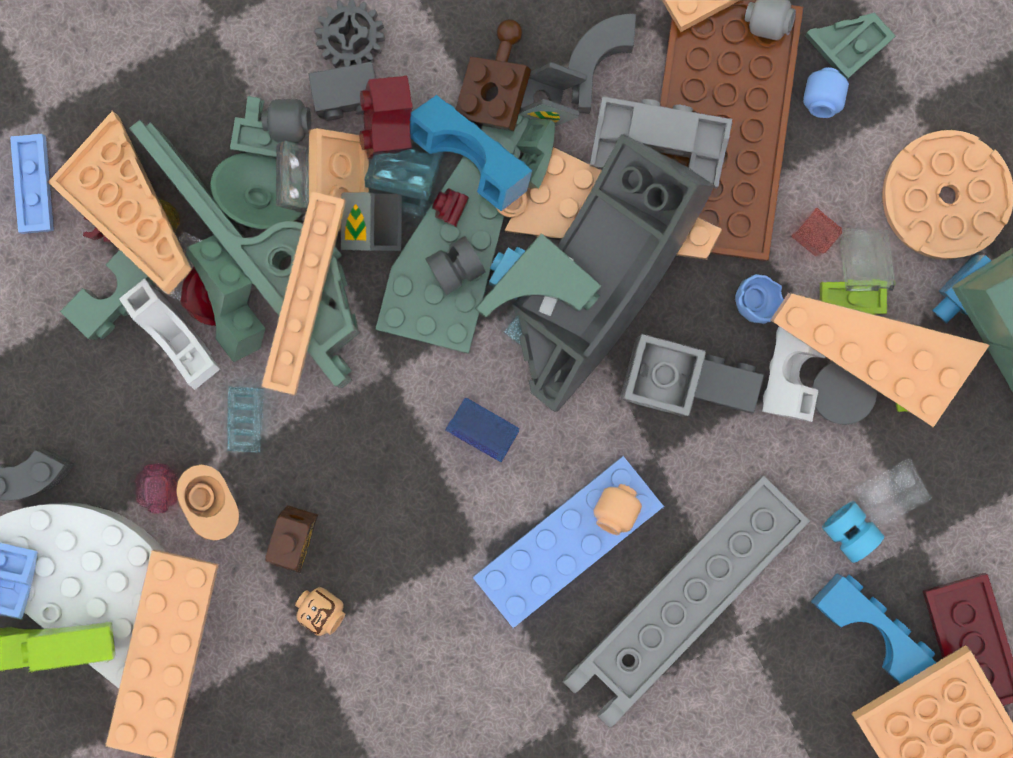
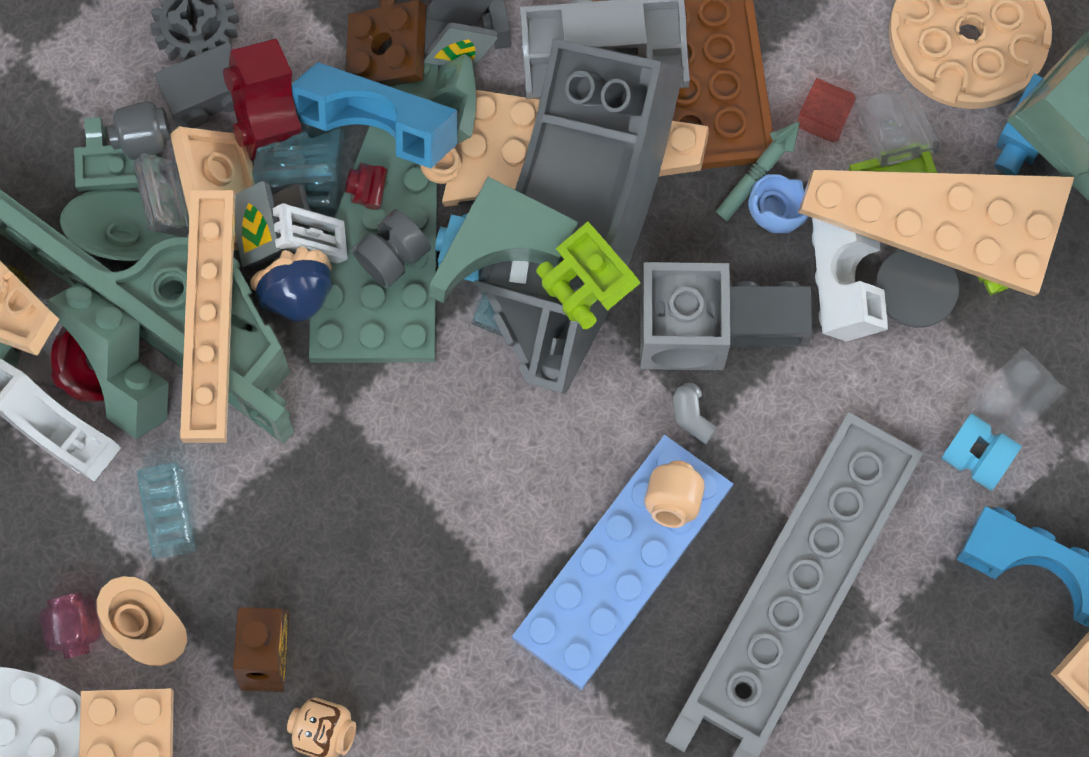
camera: 15 degrees left, 15 degrees down
(376, 278) = (294, 284): none -> dark blue hair
(379, 234) = (312, 239): none -> white tile
(483, 429) = (476, 449): clear blue panel -> none
(605, 332) = (597, 265): none -> lime plate
(645, 443) = (688, 412): none -> light grey arm
(776, 252) = (783, 140): none -> sand green piece

